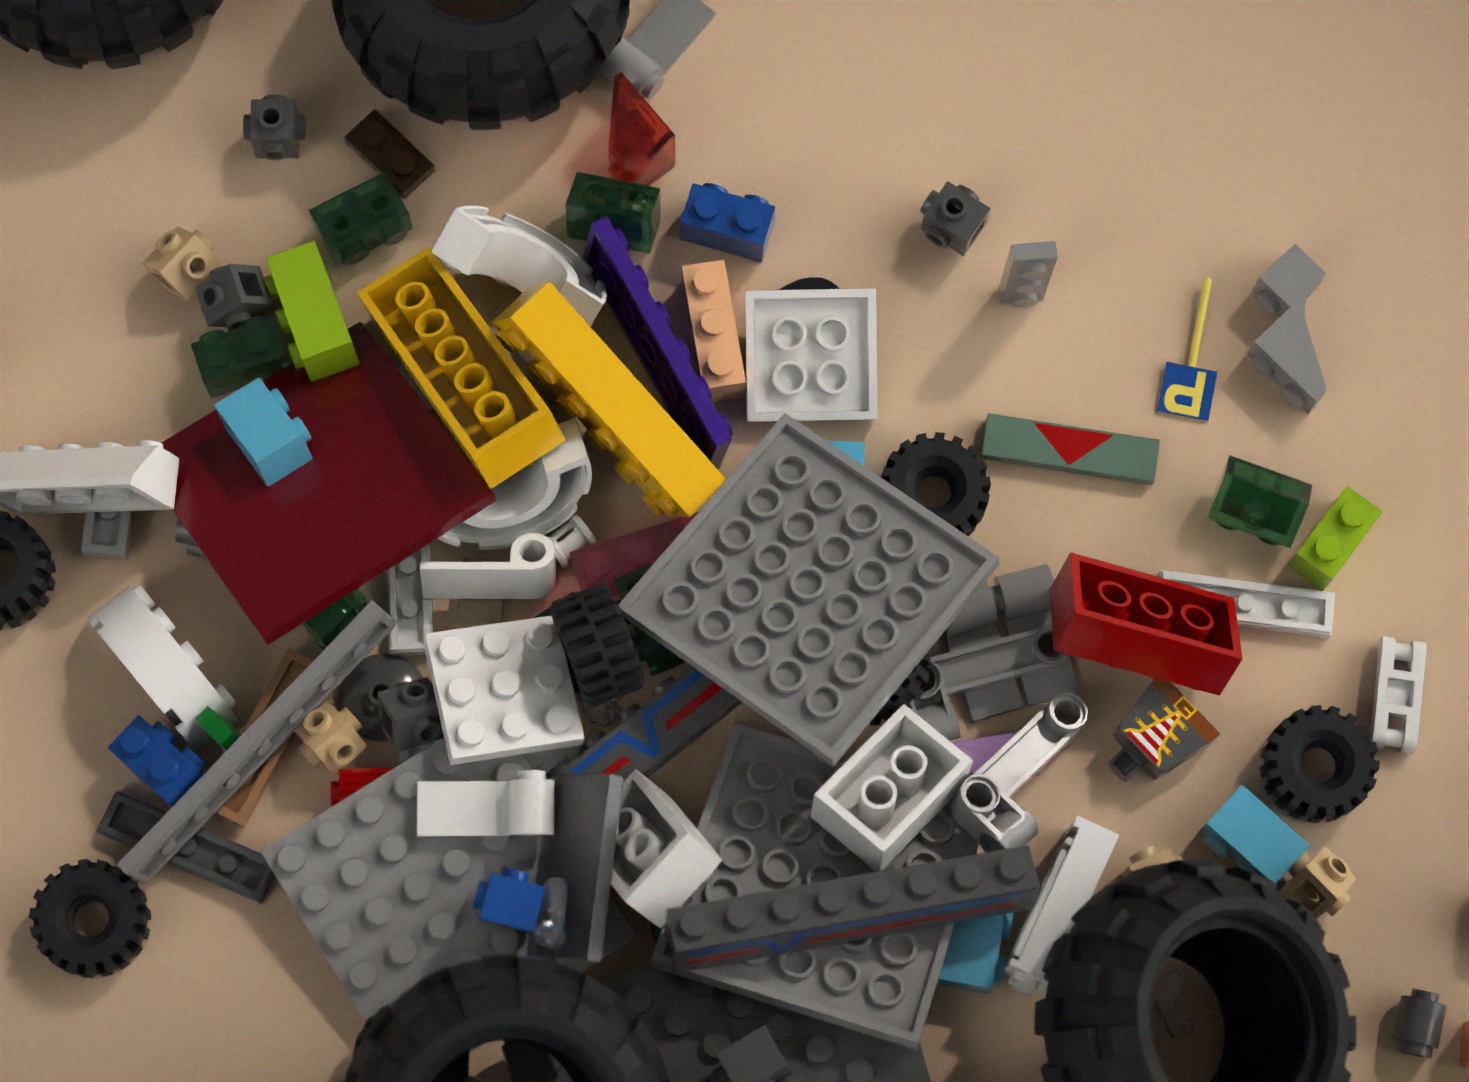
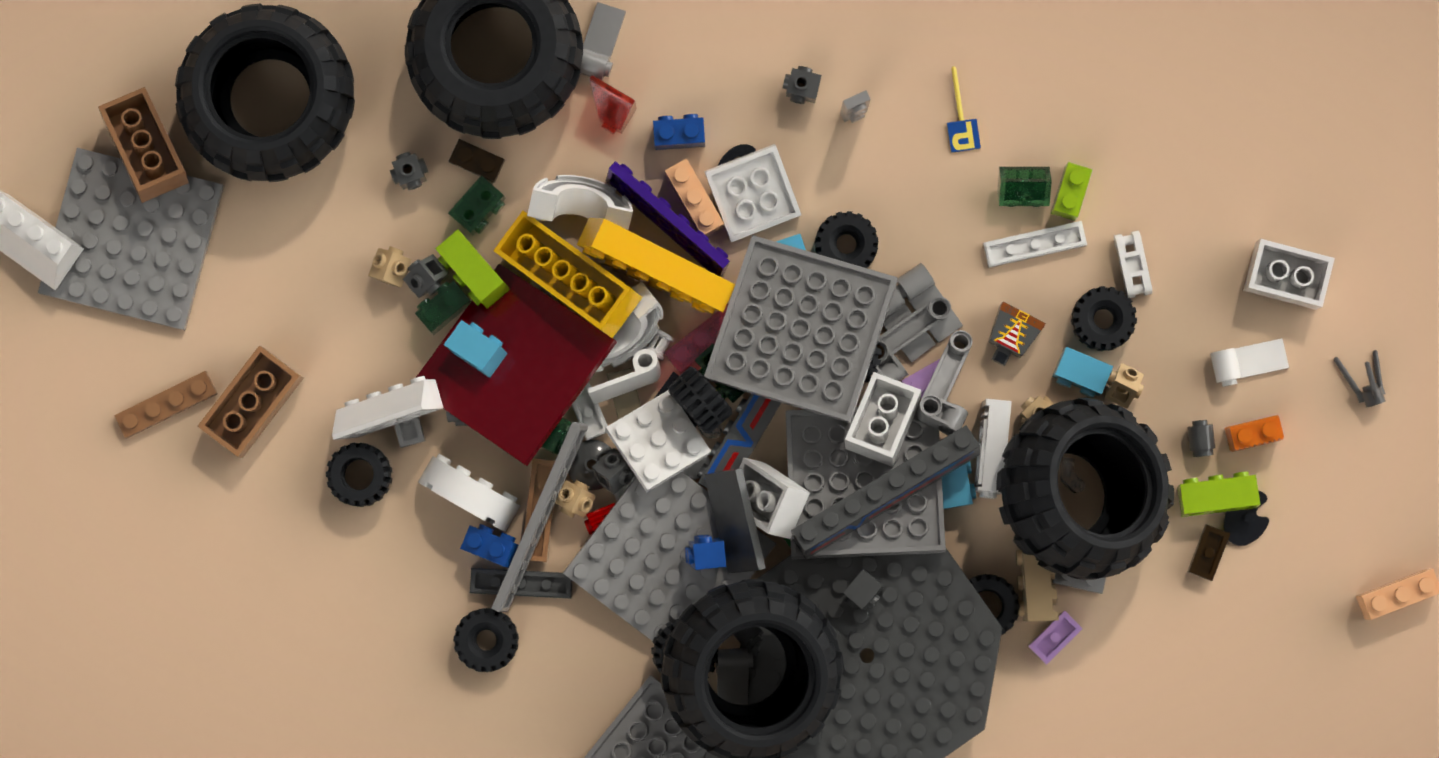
camera: 15 degrees left, 10 degrees up
(218, 728) = (516, 517): green tile -> none
(487, 807) = (674, 506): white door -> none
(551, 919) = (732, 555): clear arm -> none
(626, 204) = (618, 147): clear green brick -> none
(1070, 449) = (911, 192): sand green tile -> none
(1144, 624) = (986, 280): red brick -> none
(1286, 346) = (1009, 92): light grey arch -> none

